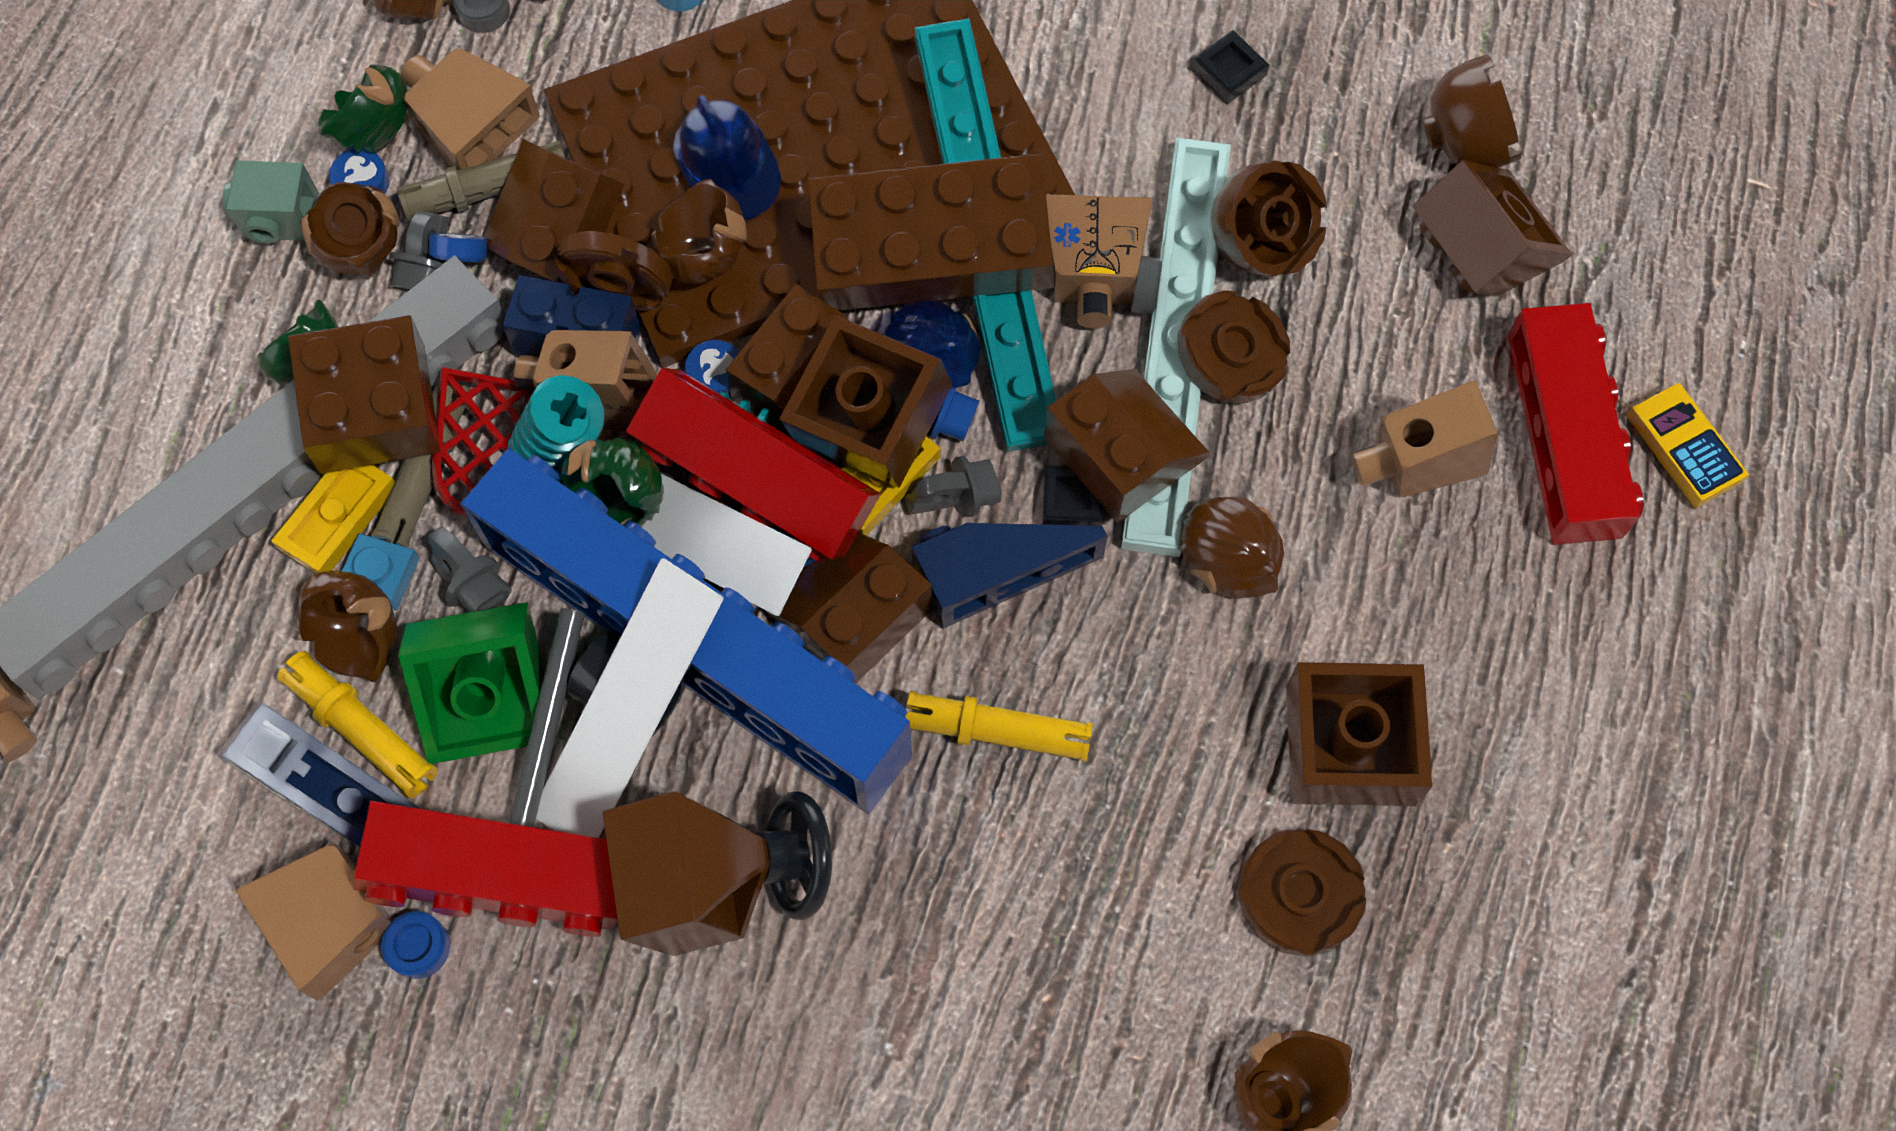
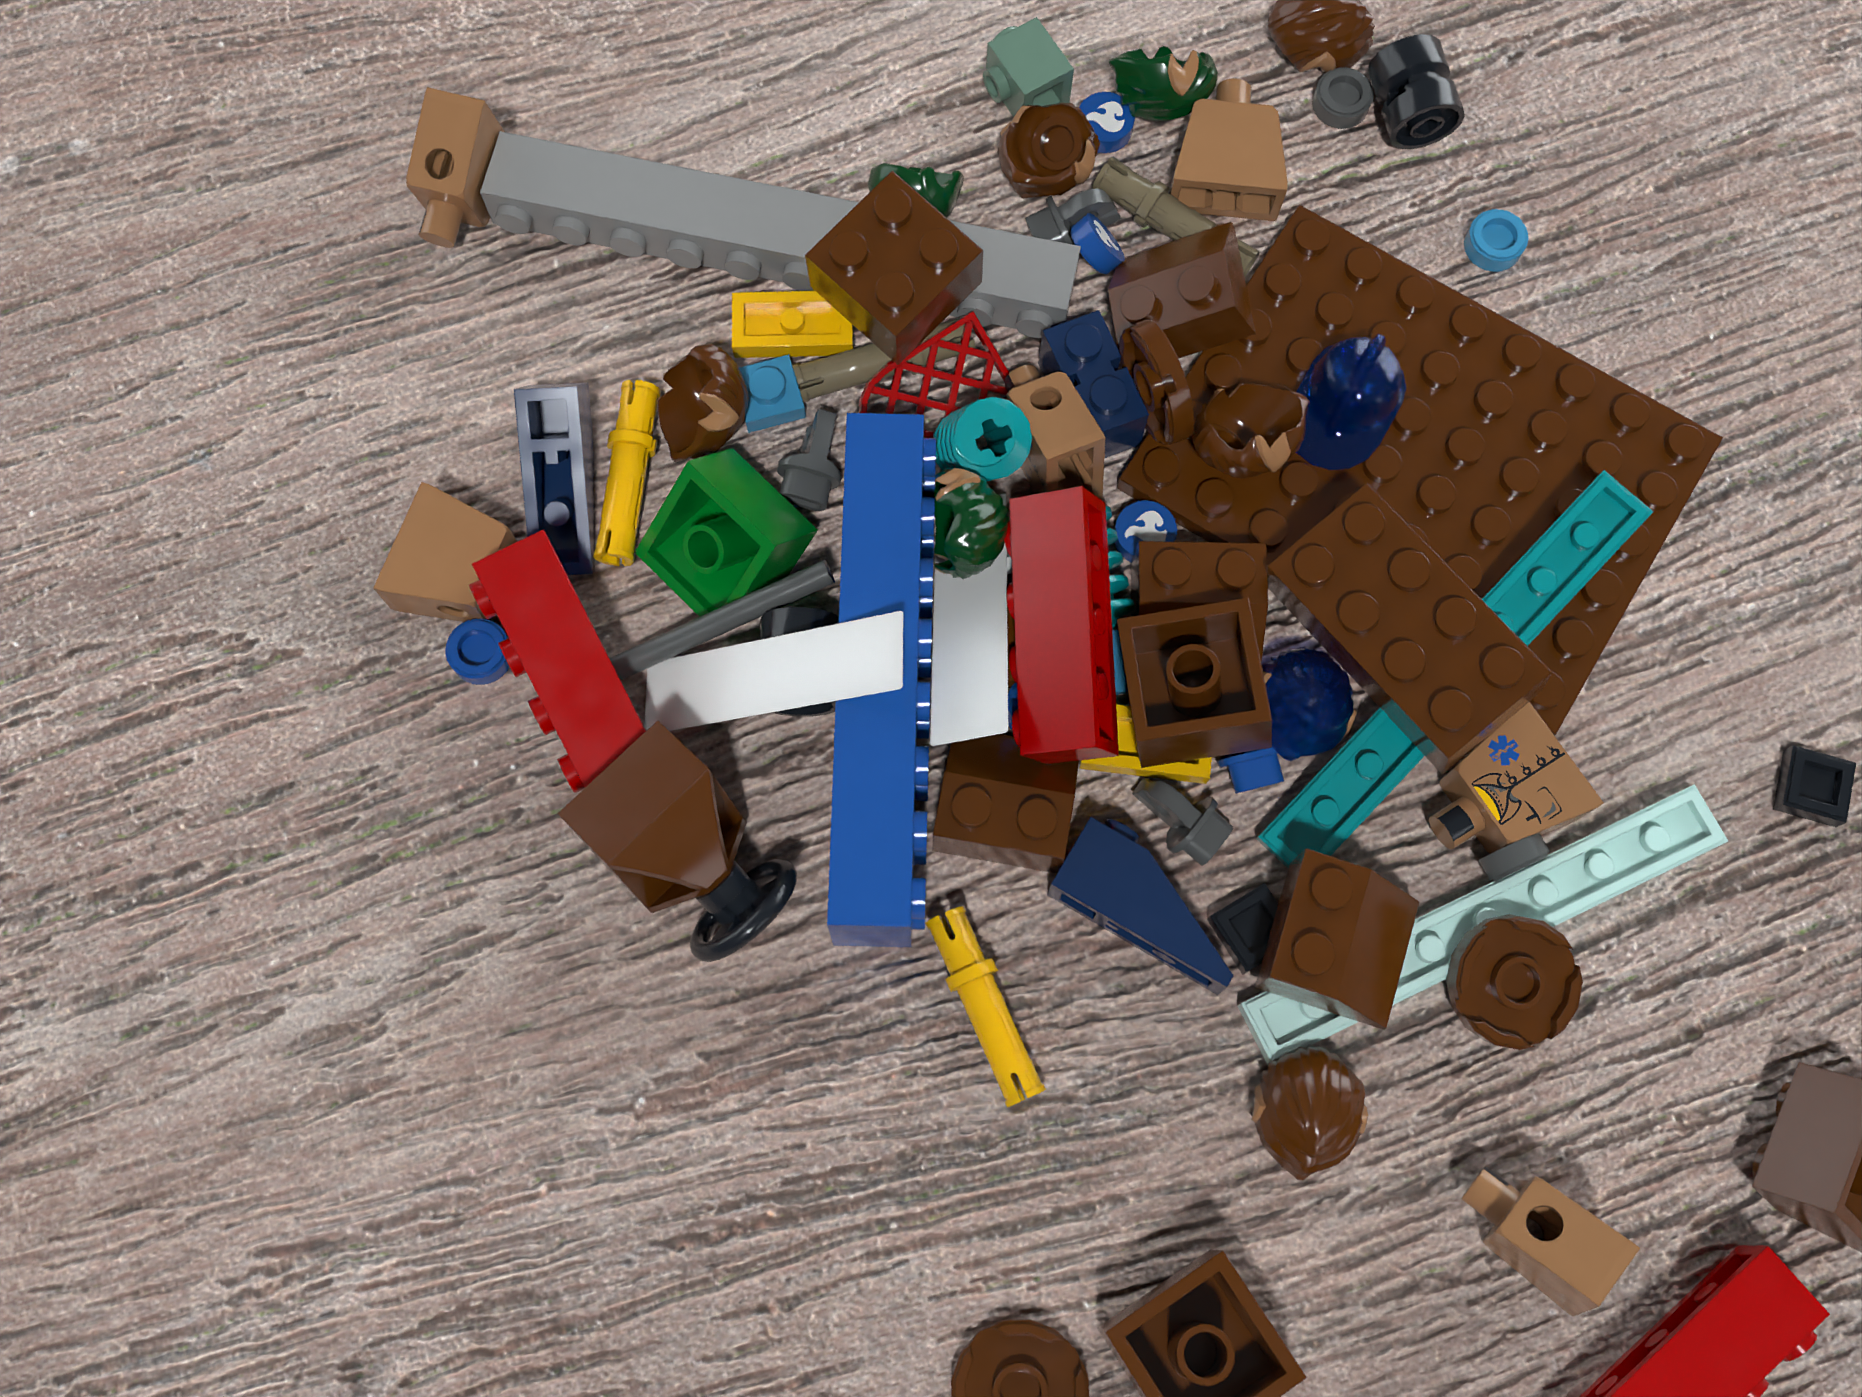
camera: 55 degrees right, 5 degrees up
(1269, 218) = (1671, 930): reddish brown cylinder -> none

